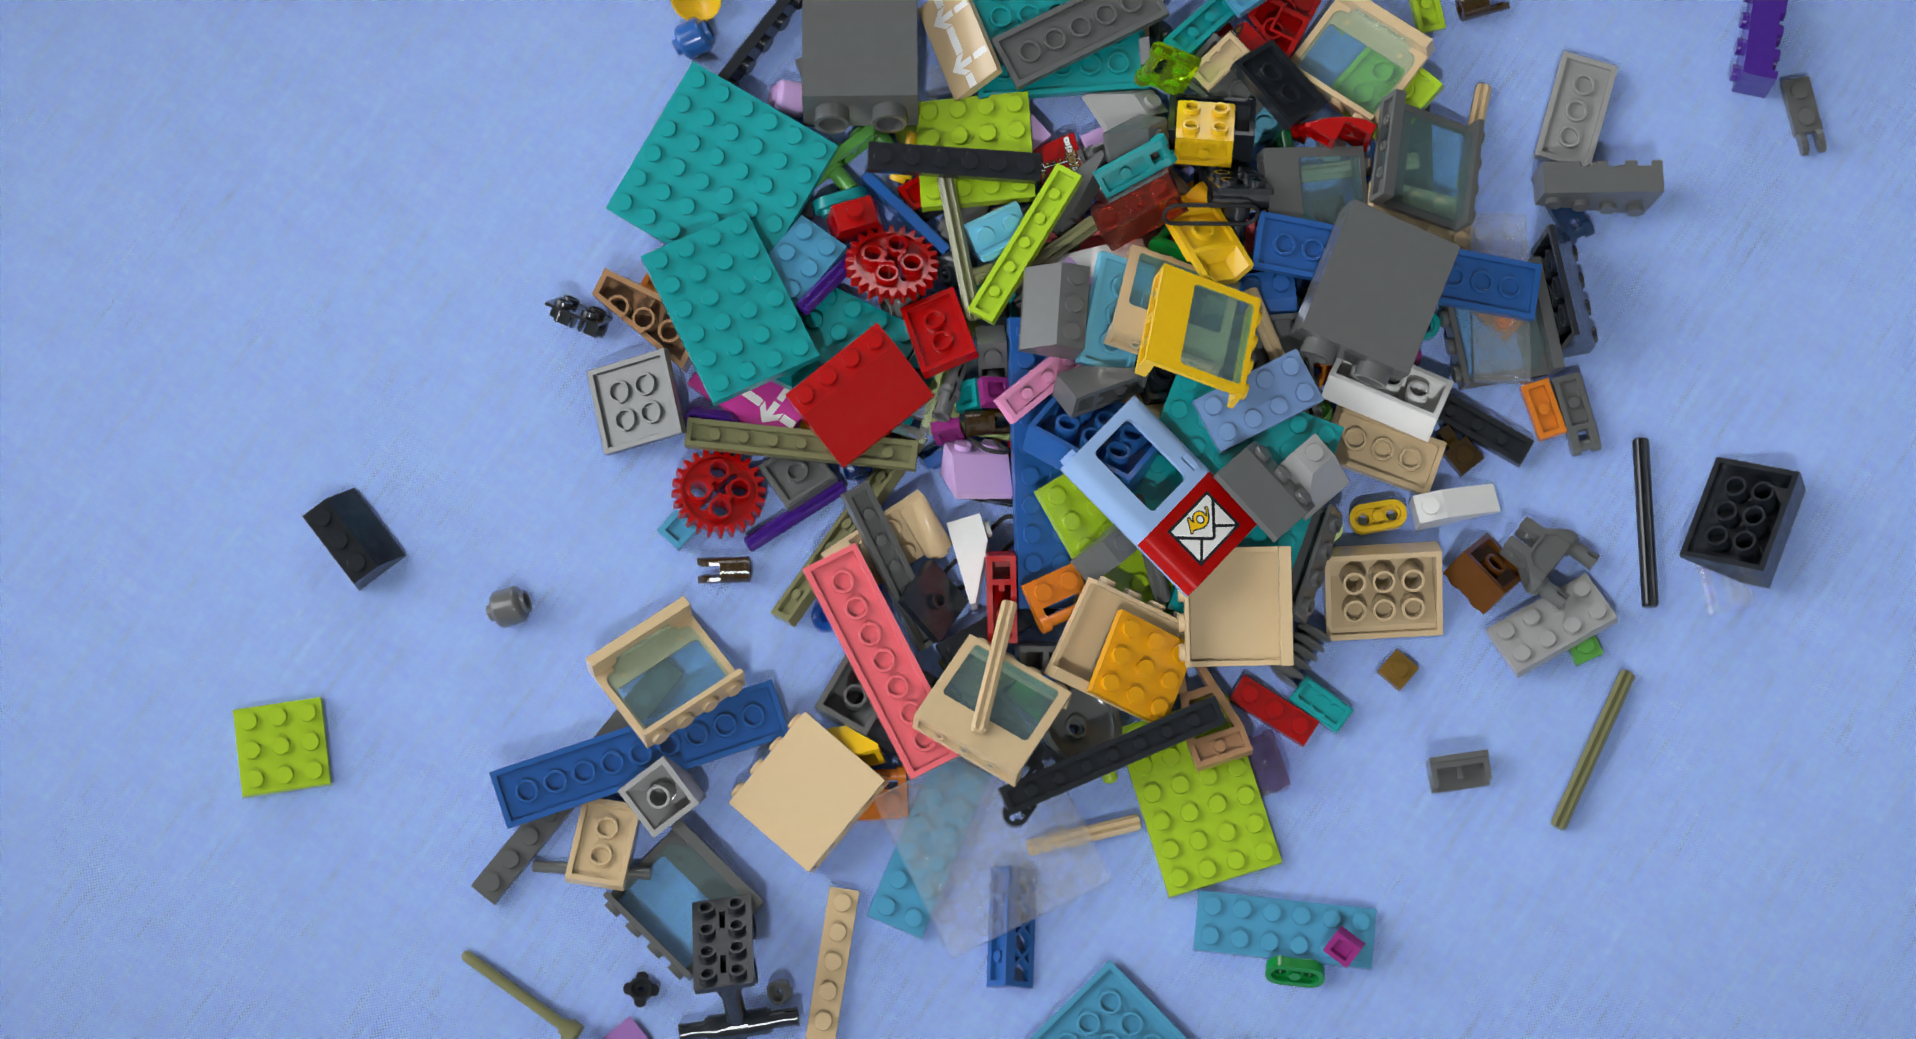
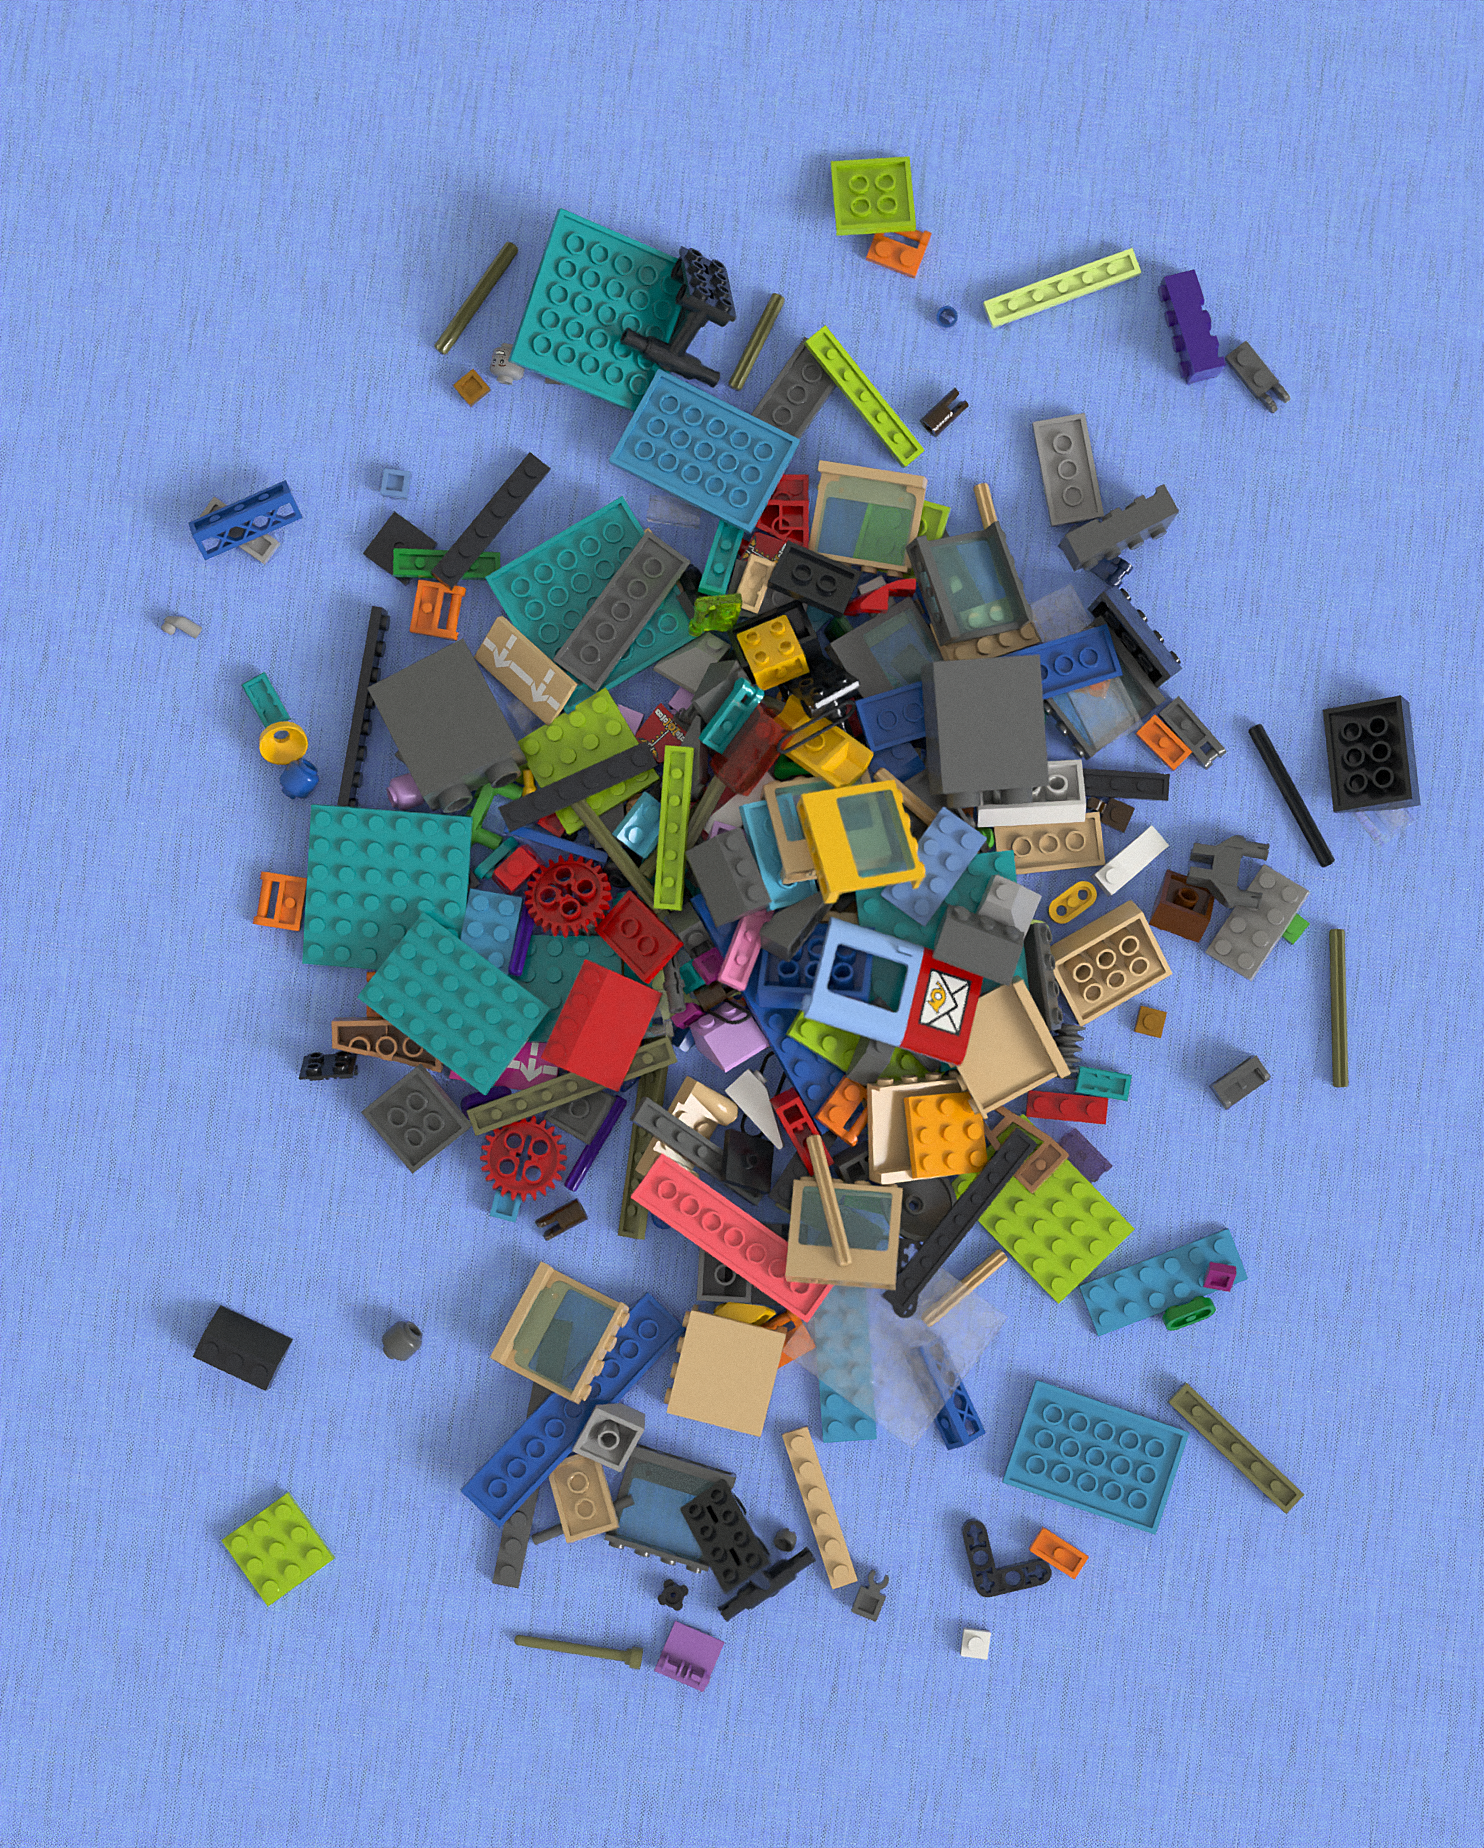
camera: 35 degrees left, 10 degrees up
(621, 148) = (289, 901): none -> orange plate

